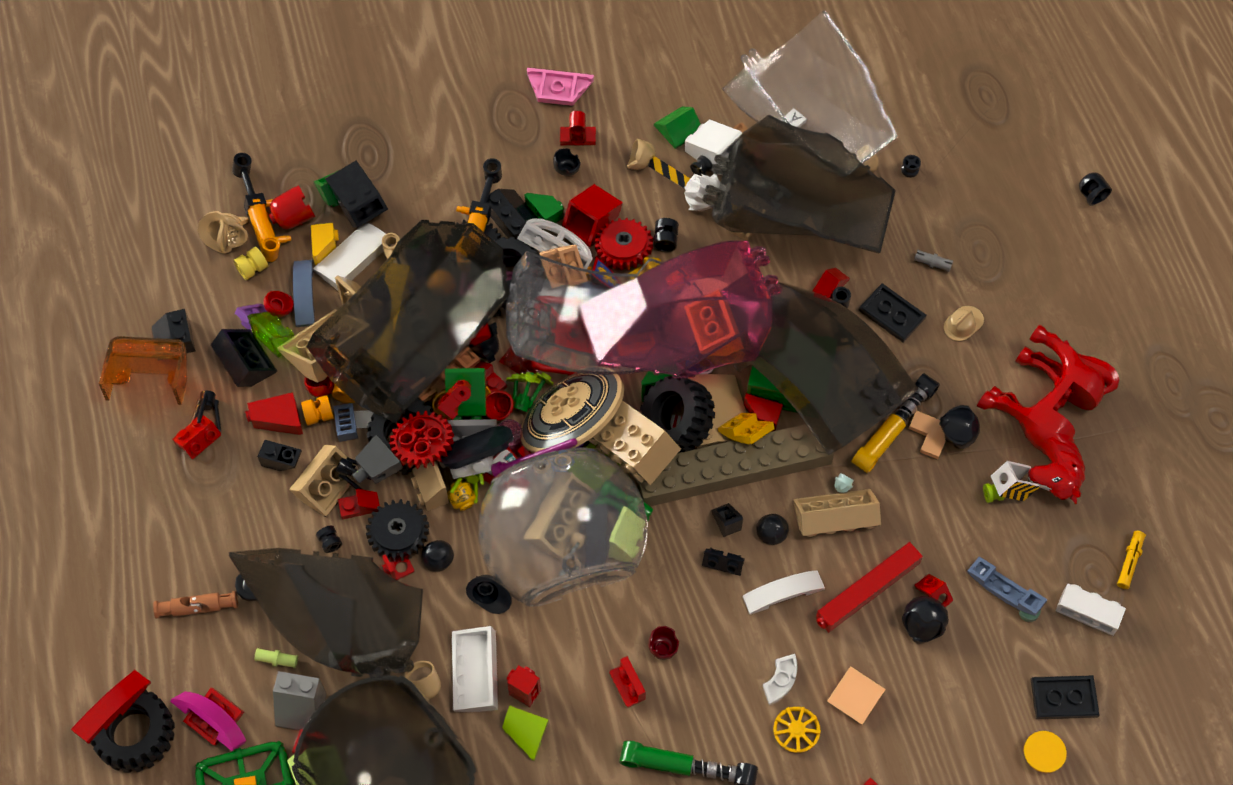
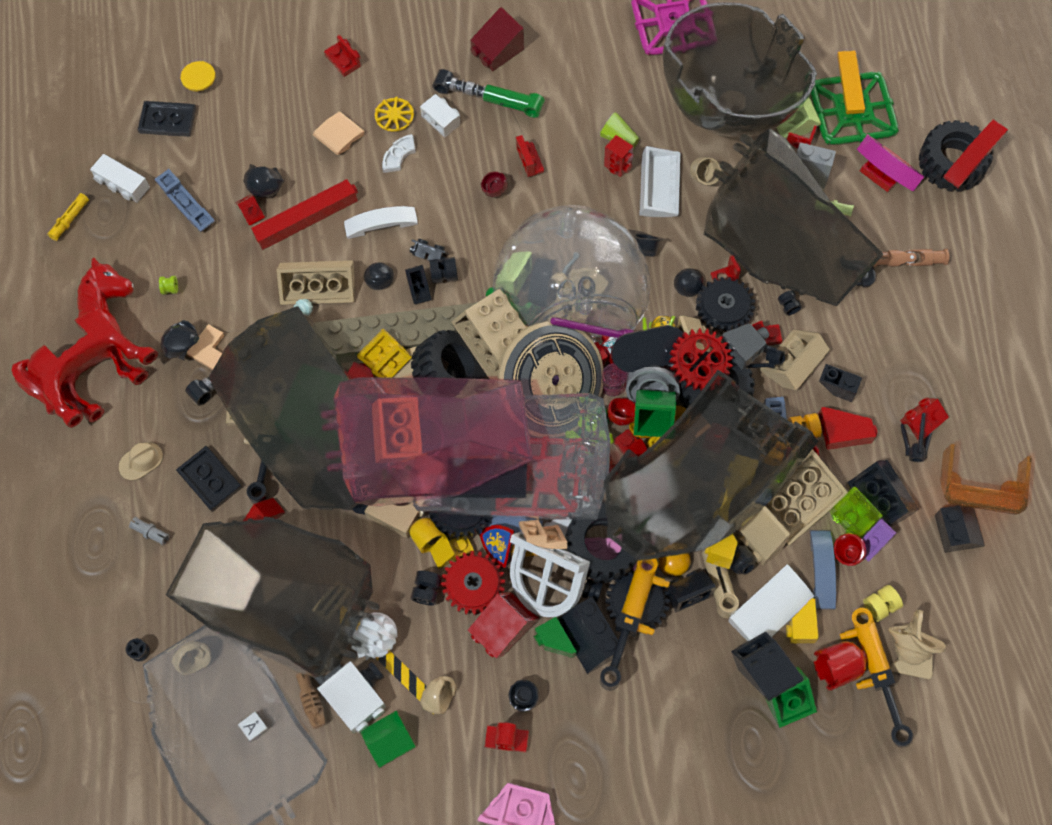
camera: 170 degrees left, 5 degrees up
(454, 397) = (664, 390): red leg -> none
(696, 538) = (443, 270): none -> black wheel
(740, 728) = (440, 115): none -> white brick
(1014, 487) = (151, 290): white piece -> none

